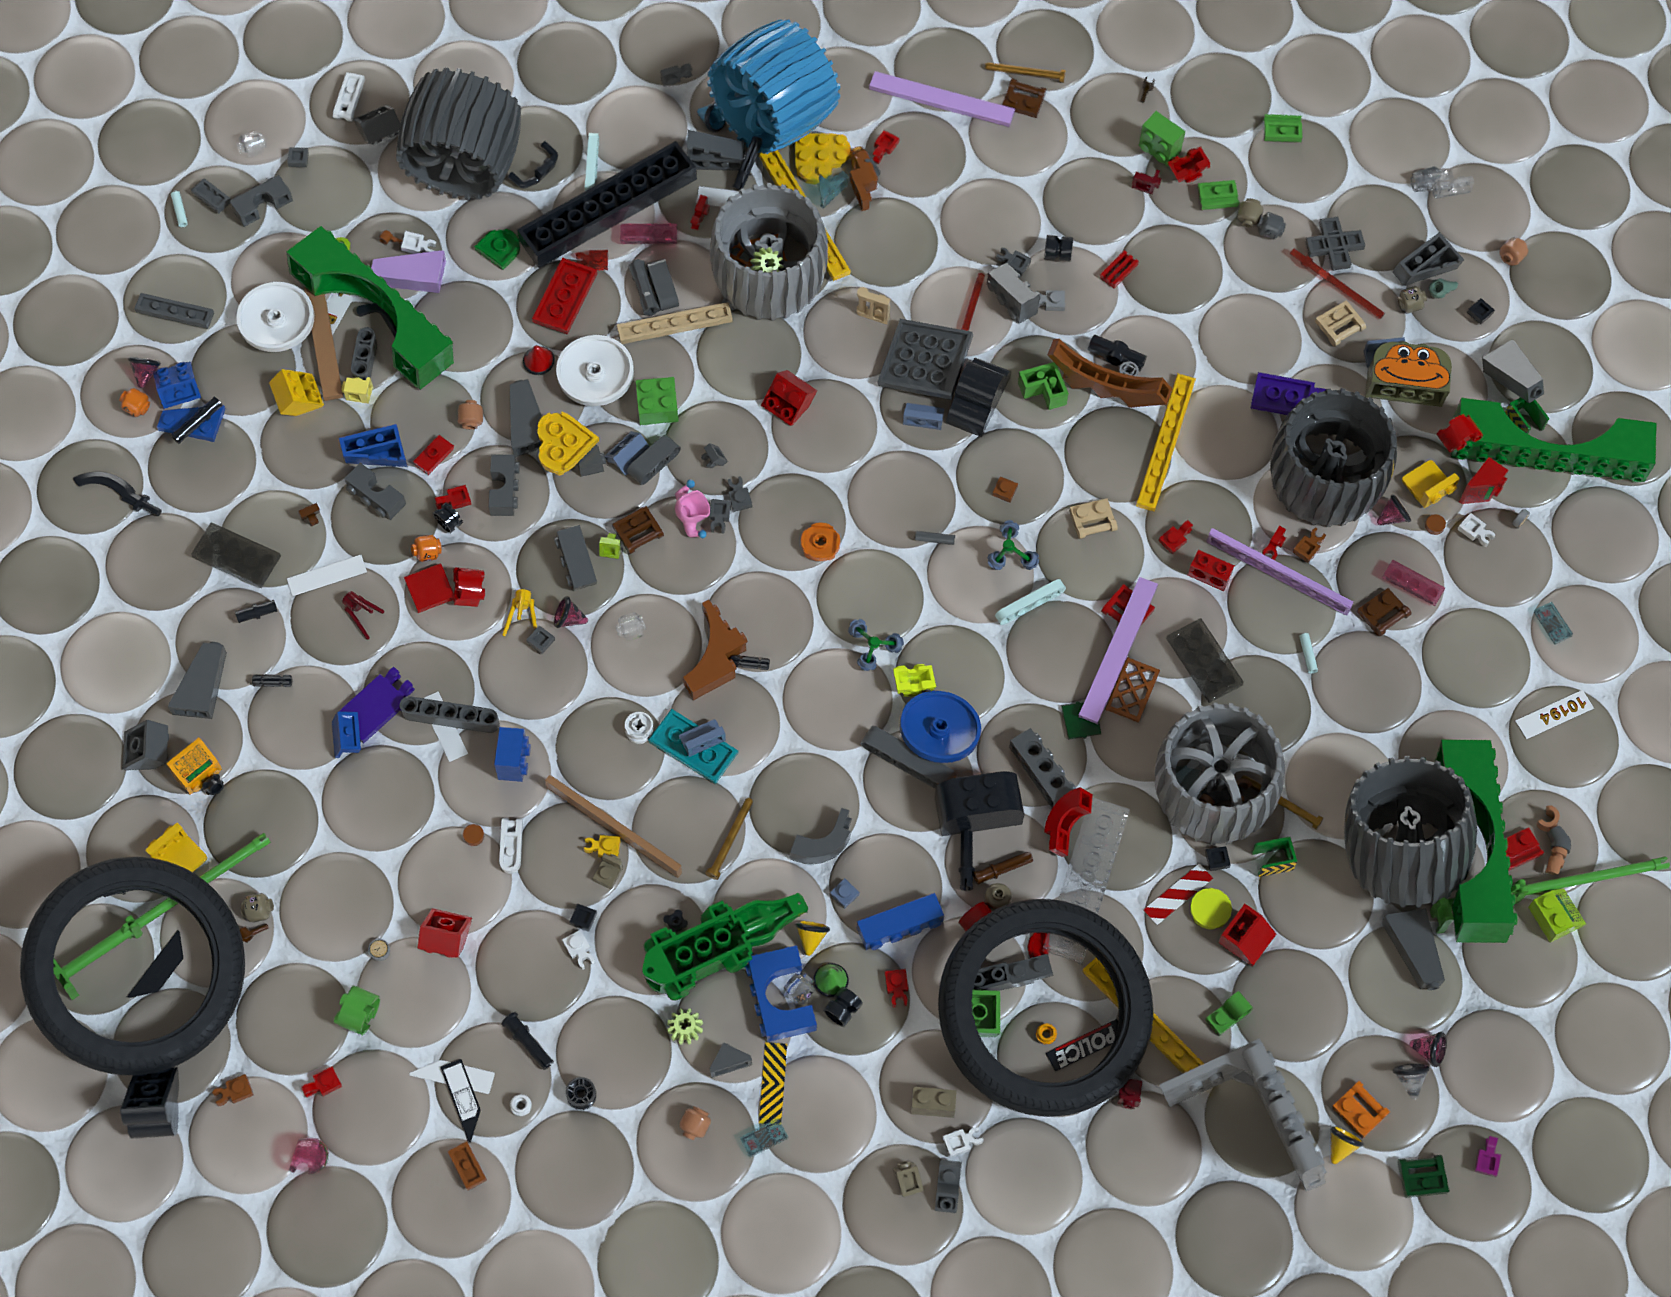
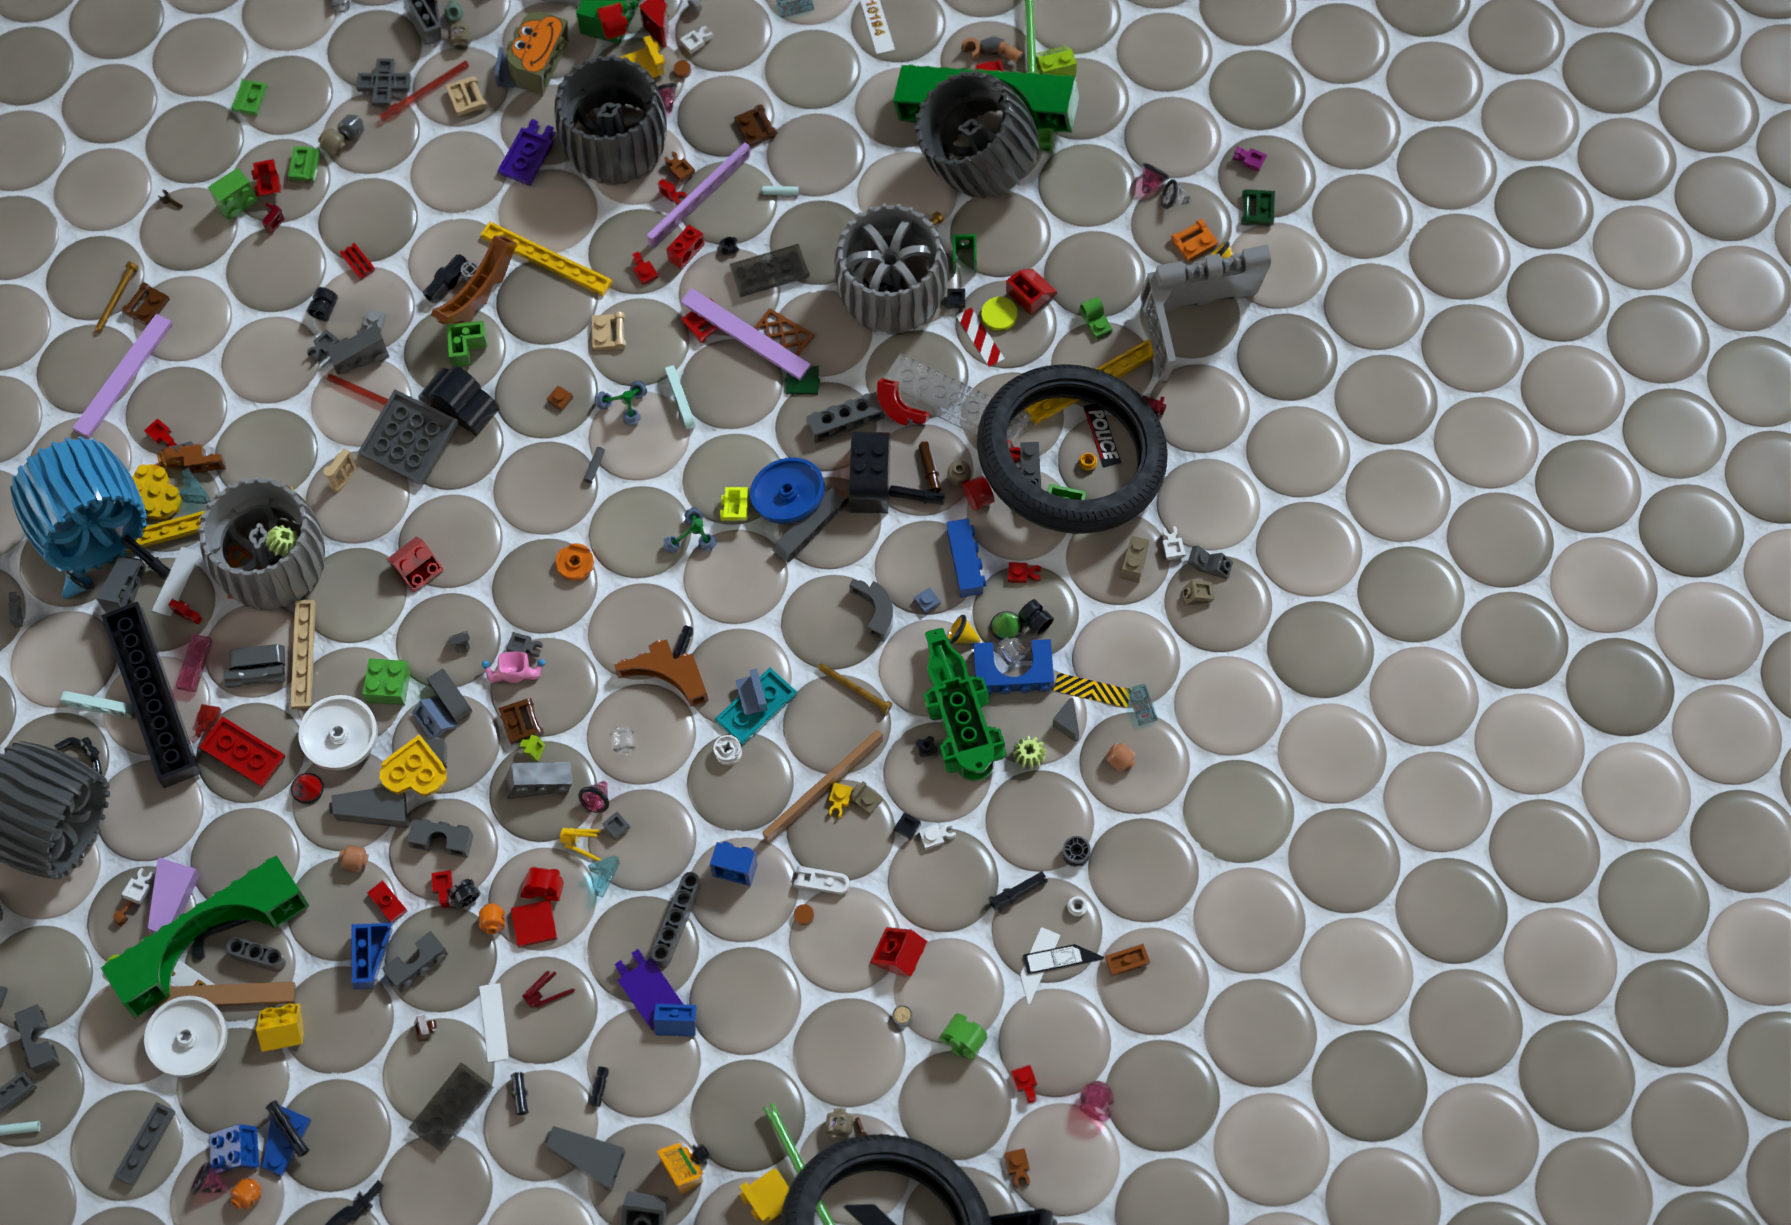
camera: 75 degrees left, 0 degrees up
(357, 389) = (294, 965): light yellow brick -> none
(448, 736) = (694, 927): white sticker -> none
(490, 641) = (605, 869): none -> clear light blue slope
(499, 247) = (164, 808): green tile -> none
(739, 496) = (506, 626): dark grey plate -> none
(923, 416) = (465, 452): sand blue panel -> none
(1226, 609) = (729, 241): none -> black plate
(1413, 582) = (734, 96): clear pink plate -> none
(1416, 945) = (1065, 167): dark grey slope -> none

